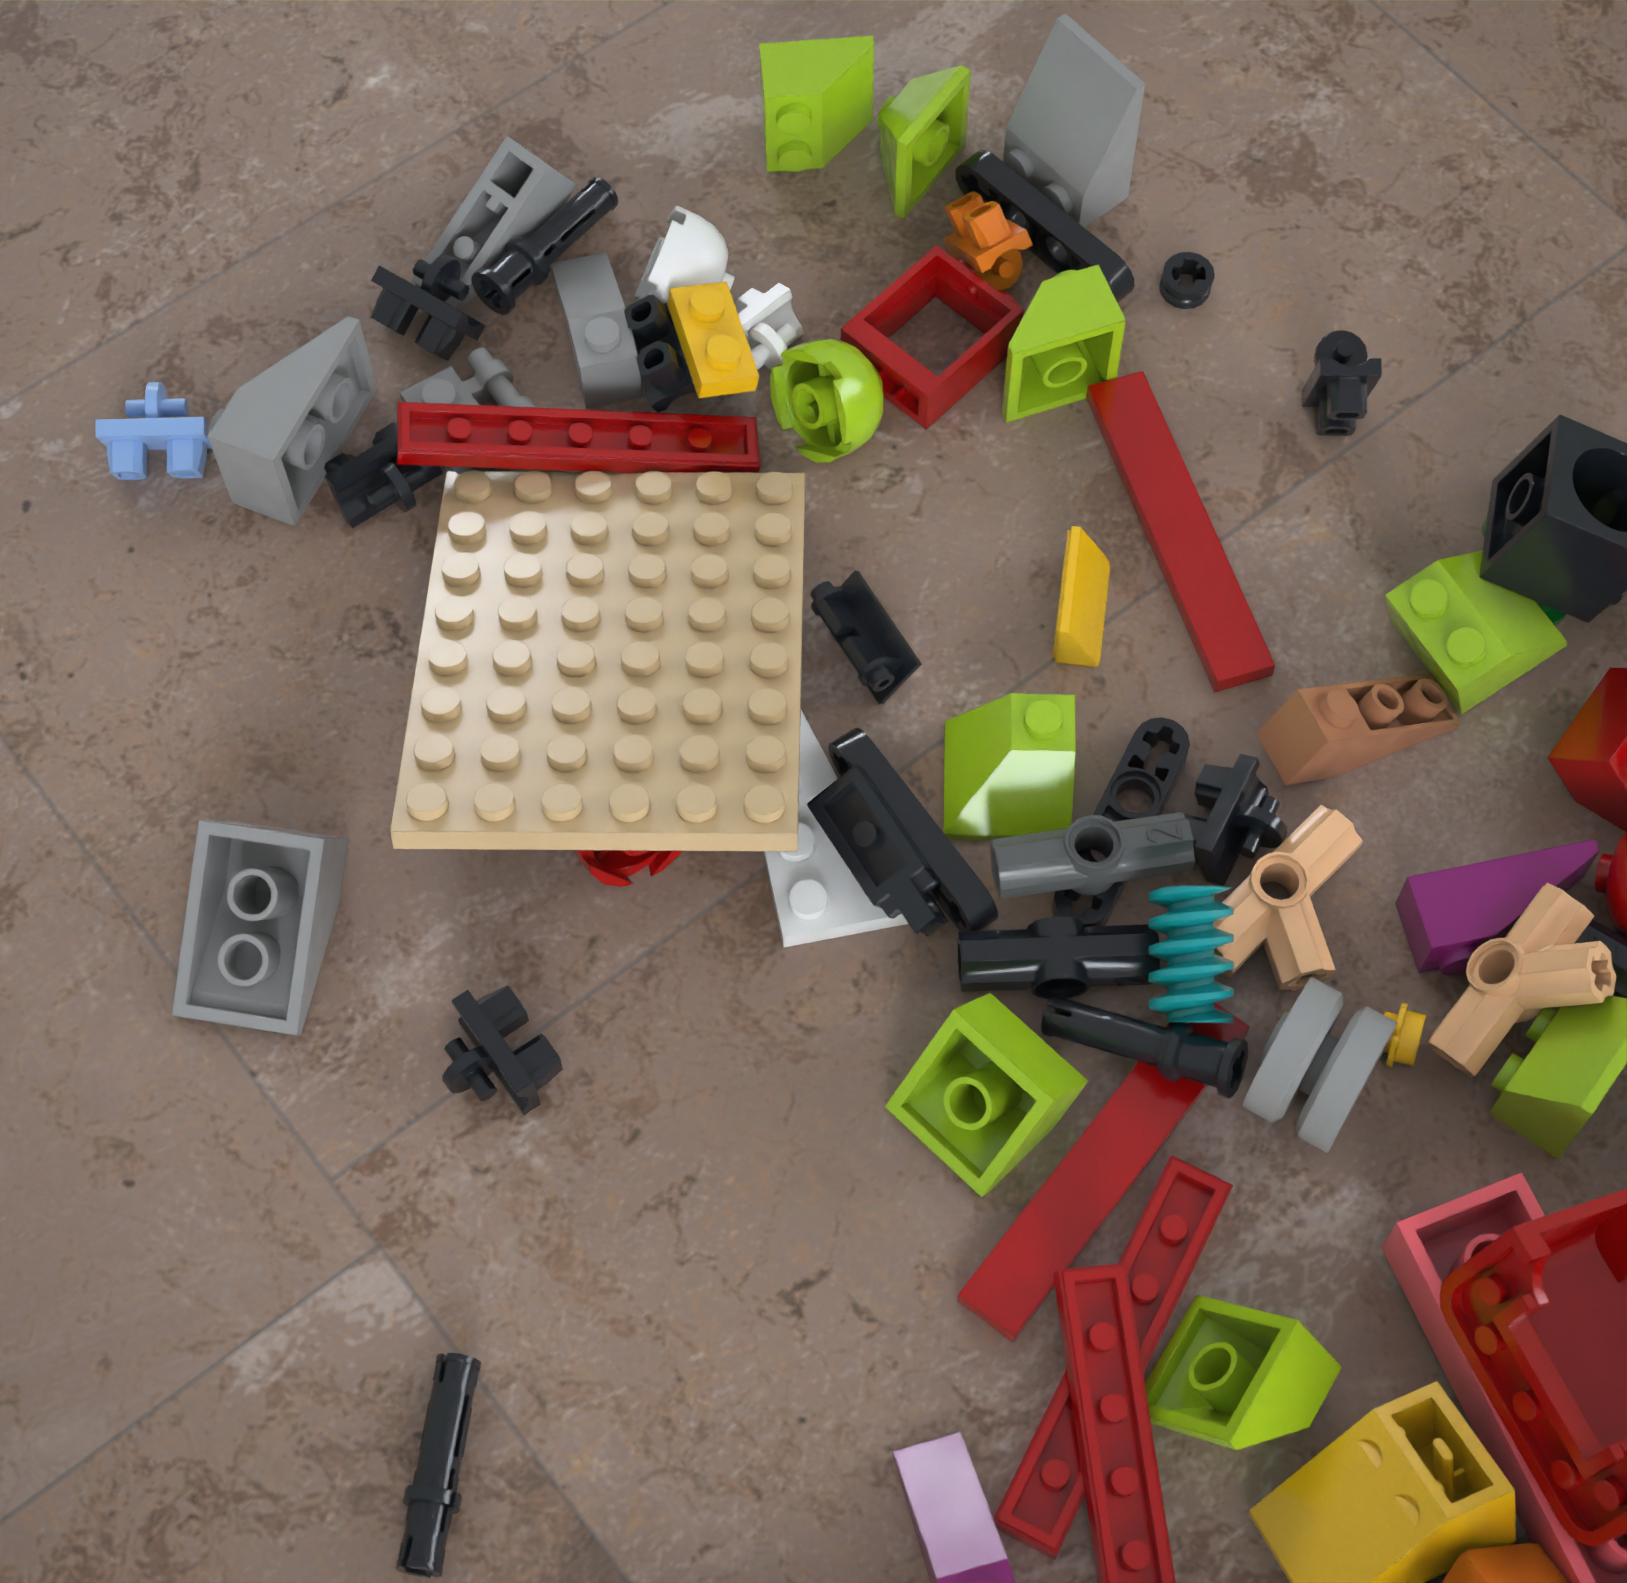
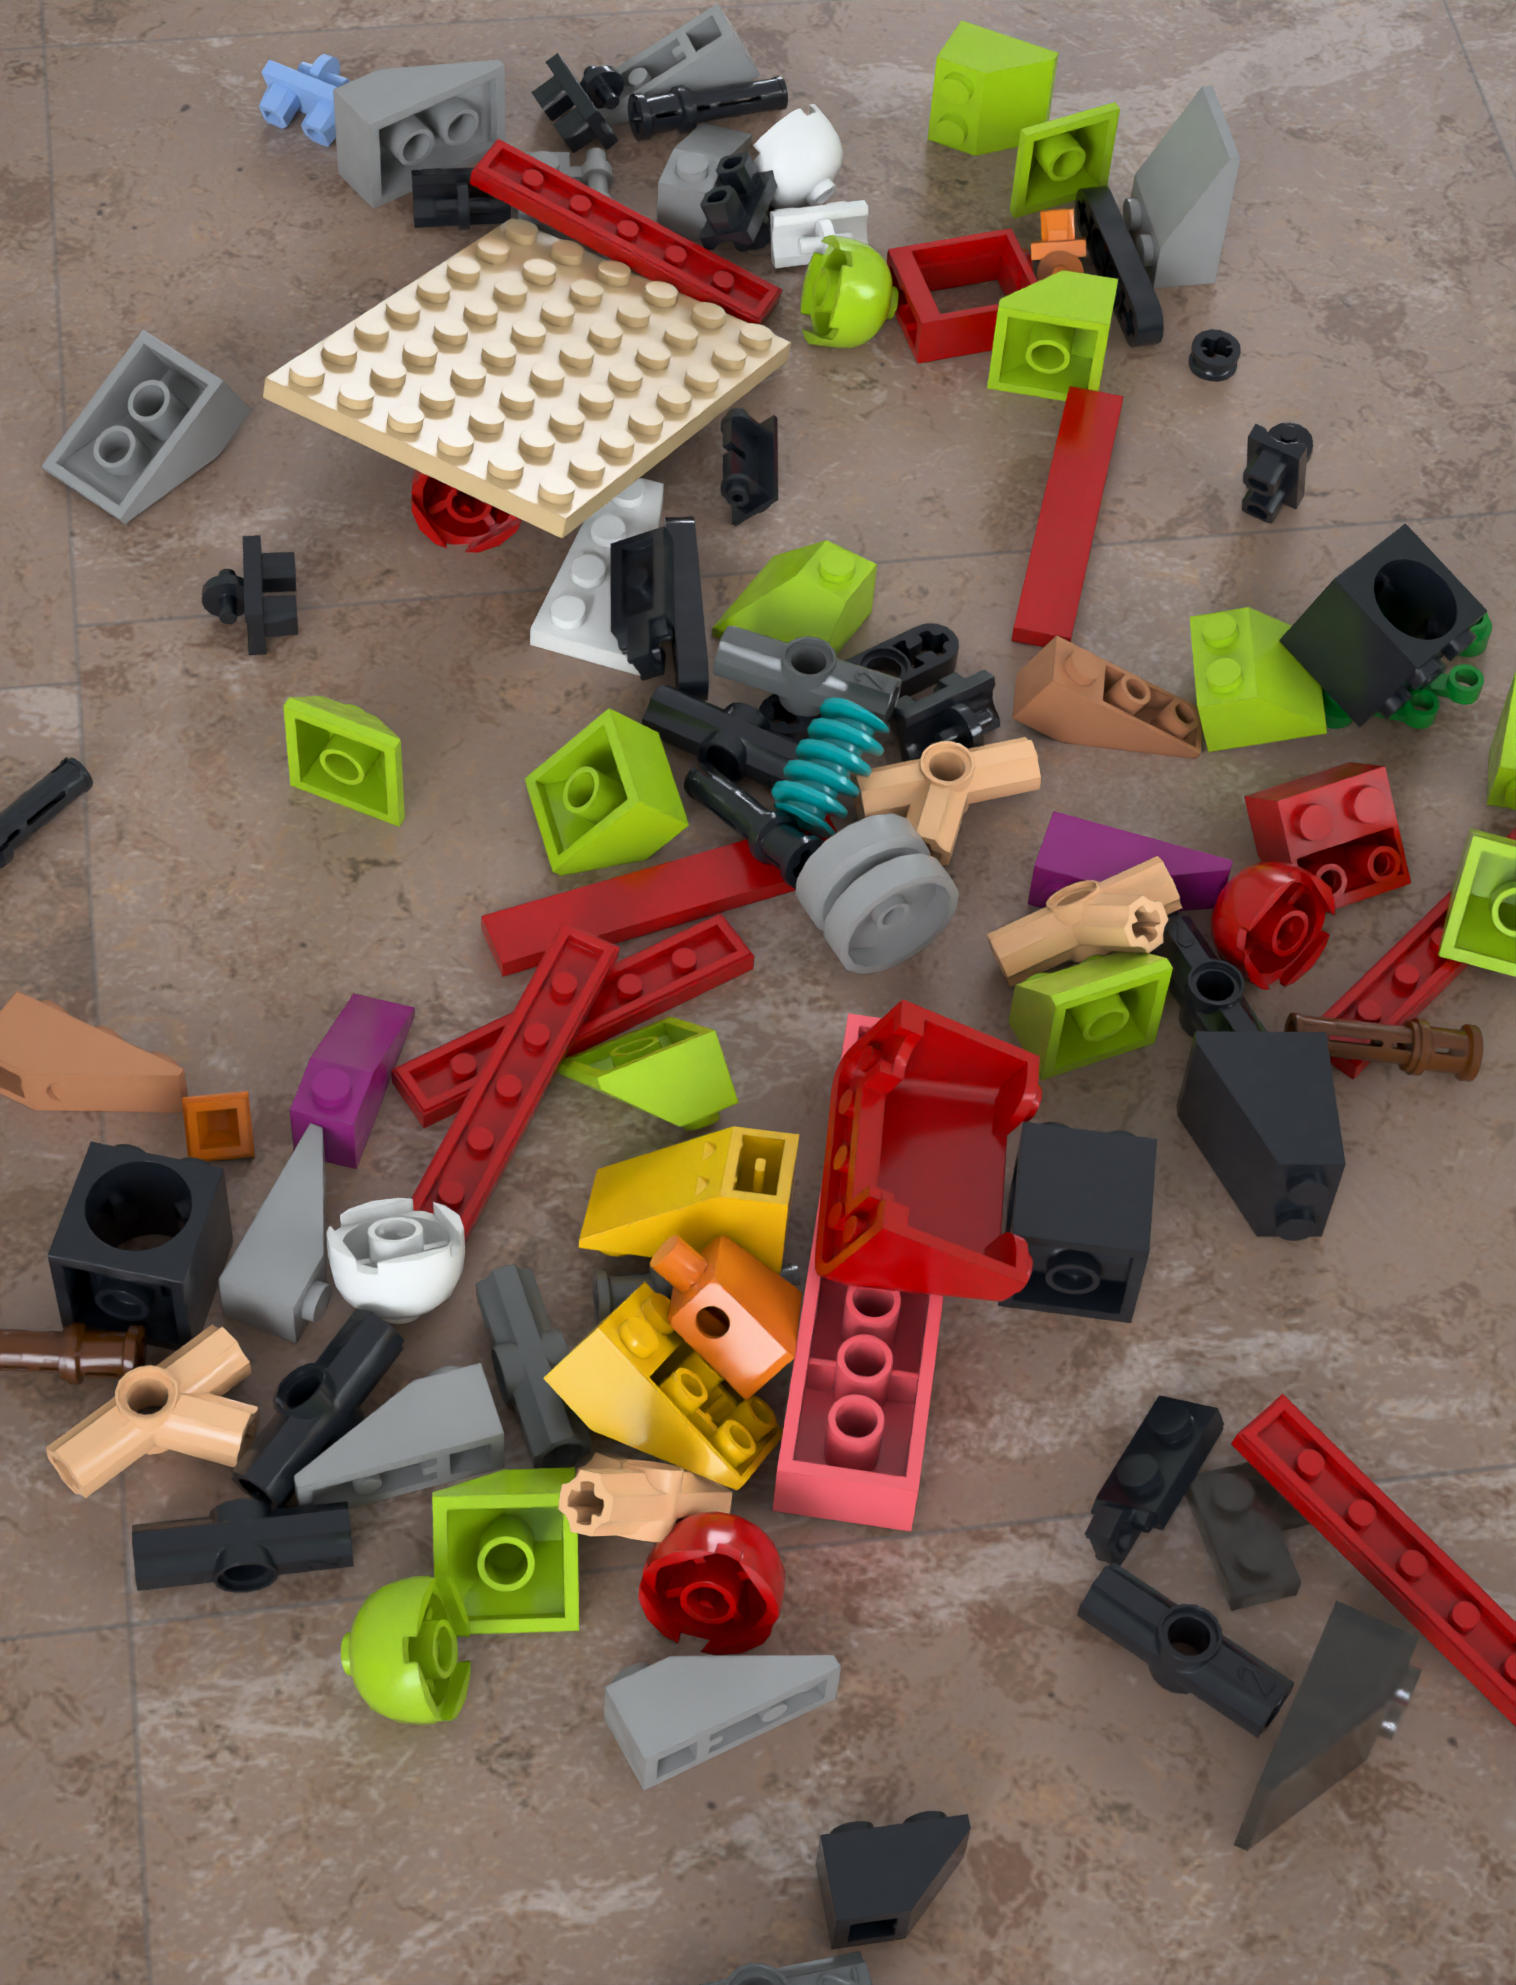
camera: 25 degrees right, 10 degrees down
(712, 339) = (775, 207): yellow plate -> none
(721, 1189) = (345, 756): none -> lime slope
(1081, 601) = (945, 523): yellow slope -> none
(1406, 1036) = (969, 927): yellow plate -> none

